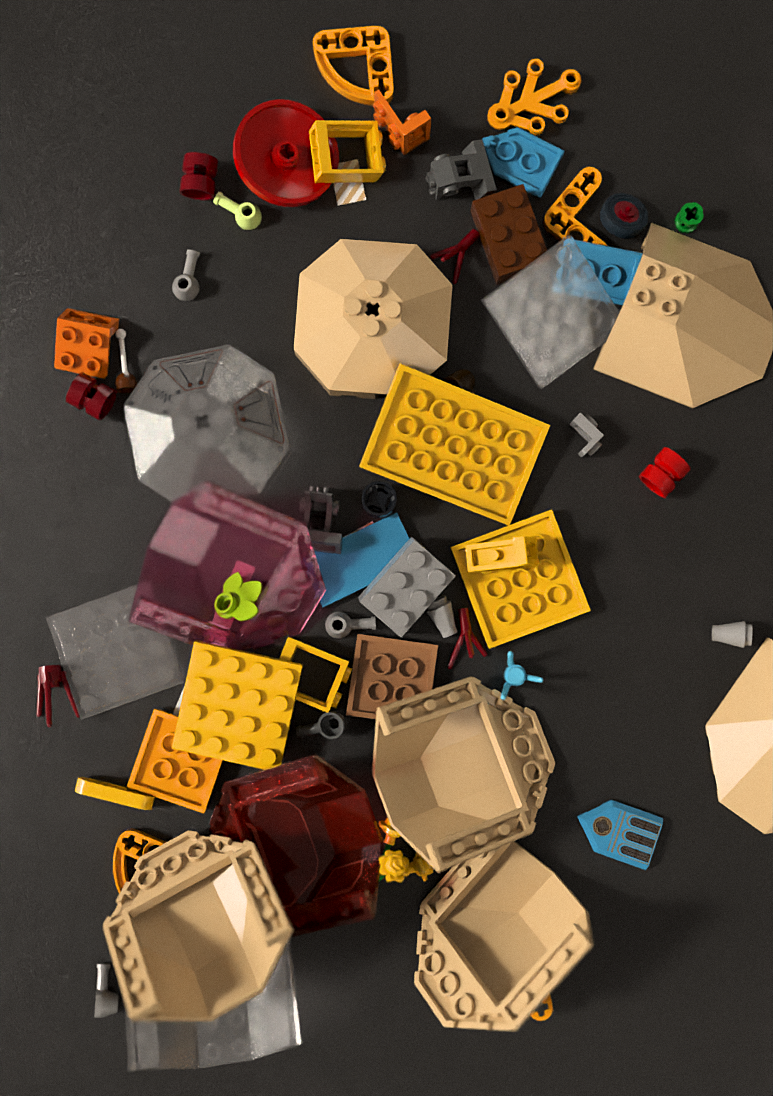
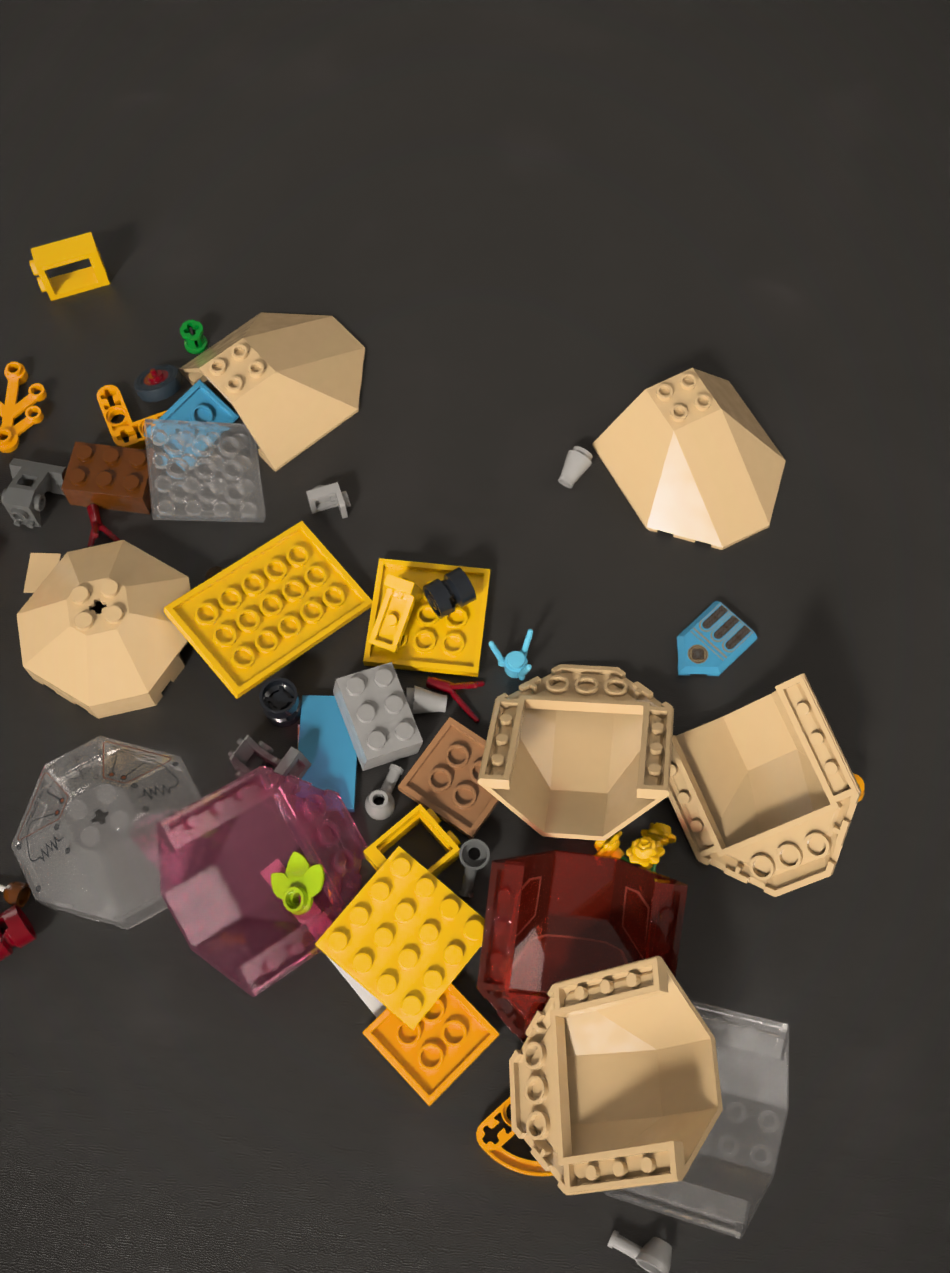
camera: 65 degrees left, 20 degrees down
(49, 678) = (269, 1134): dark red plant -> none
(109, 657) = (279, 1050): clear plate -> none
(114, 793) = (429, 1124): yellow beam -> none
(396, 227) = (38, 569): none -> tan sticker
(523, 159) = (54, 437): dark azure tile -> none
(544, 590) = (452, 591): none -> black wheel
(667, 469) = (400, 452): red wheel -> none
(700, 60) = (64, 253): none -> yellow window

